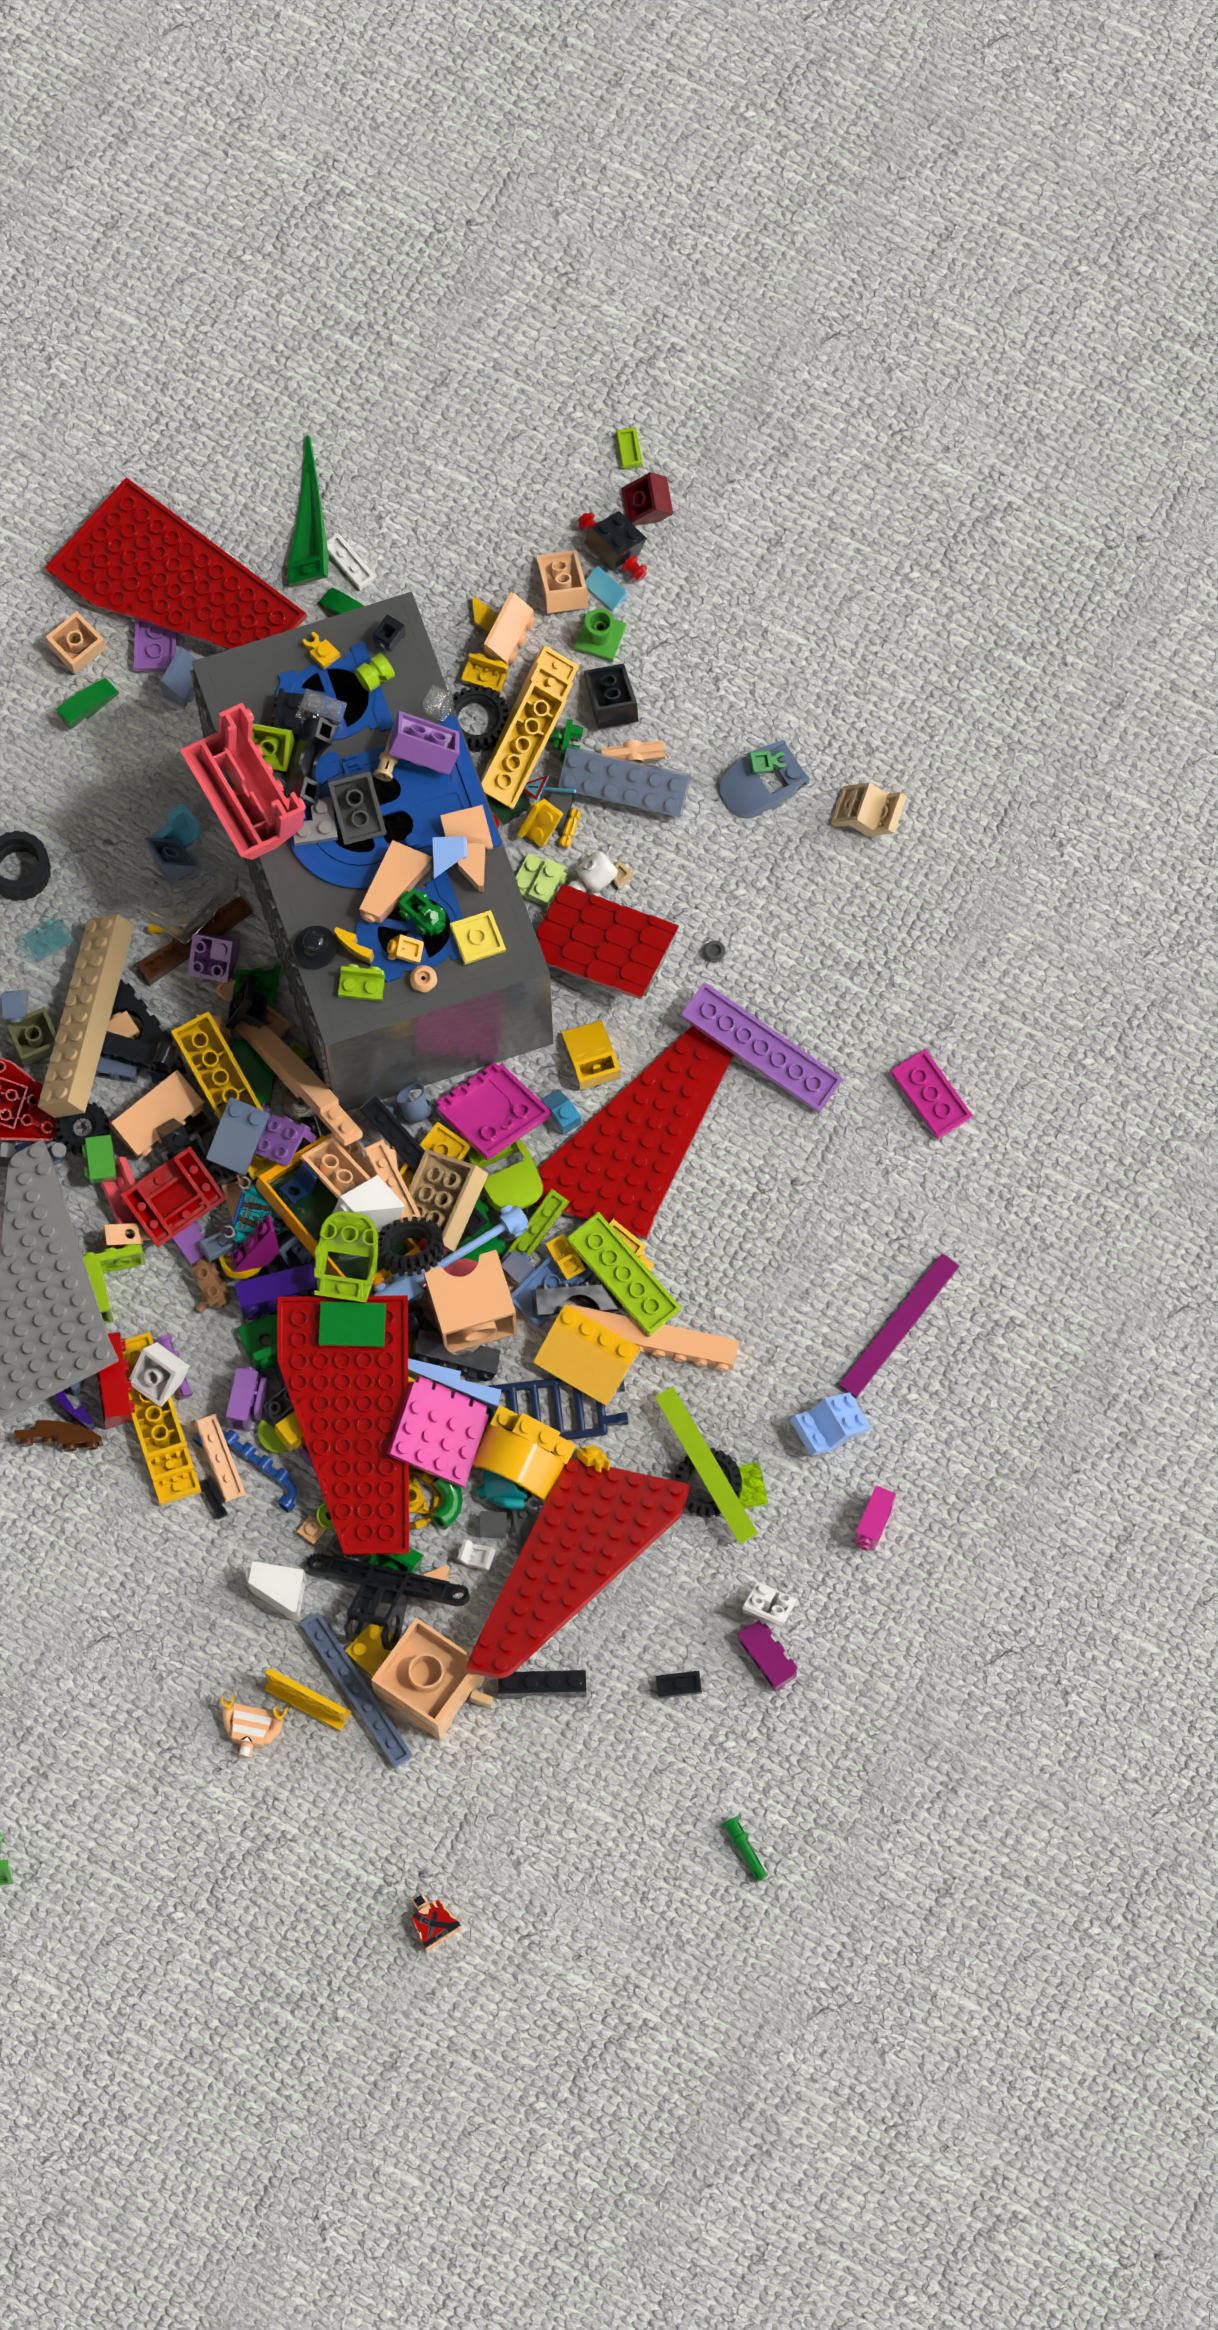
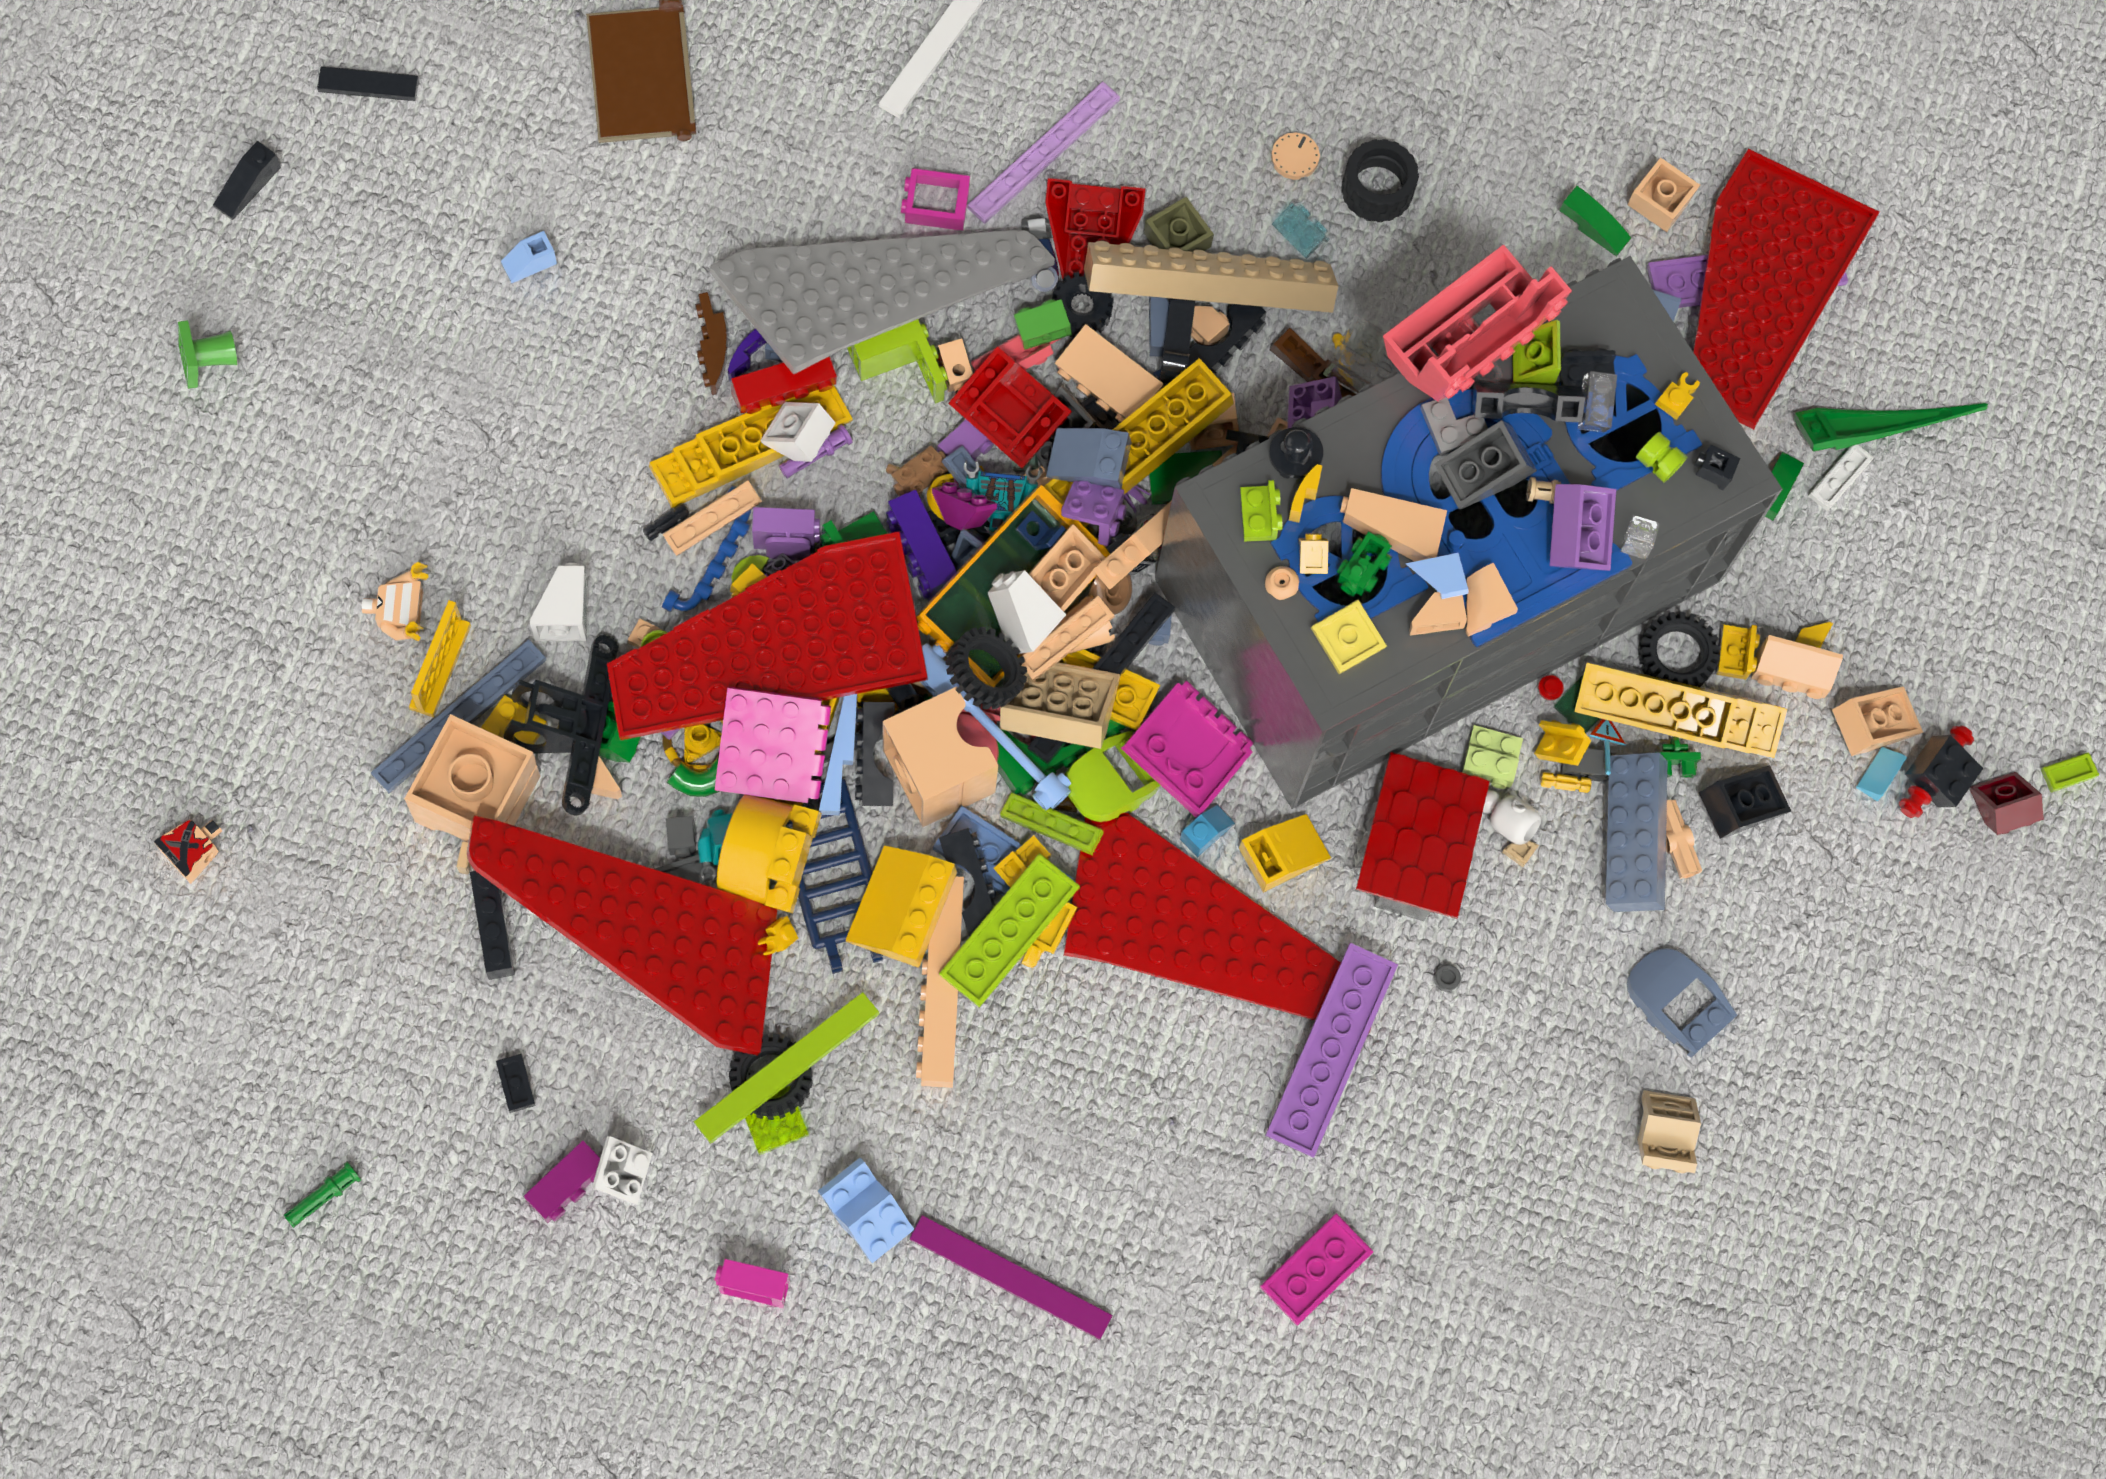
camera: 70 degrees right, 0 degrees up
(15, 1004) = (1210, 200): sand blue slope -> none
(173, 1135) = (1083, 393): black brick -> none
(351, 1235) = (982, 594): lime slope -> none
(352, 1324) = (879, 620): green tile -> none
(415, 1110) = (1174, 660): sand blue helmet -> none
(476, 1555) = (640, 821): white bracket -> none
(518, 1265) = (1000, 809): sand blue brick -> none
(600, 634) = (1819, 776): bright green plant -> none
(763, 762) = (1700, 991): plate -> none

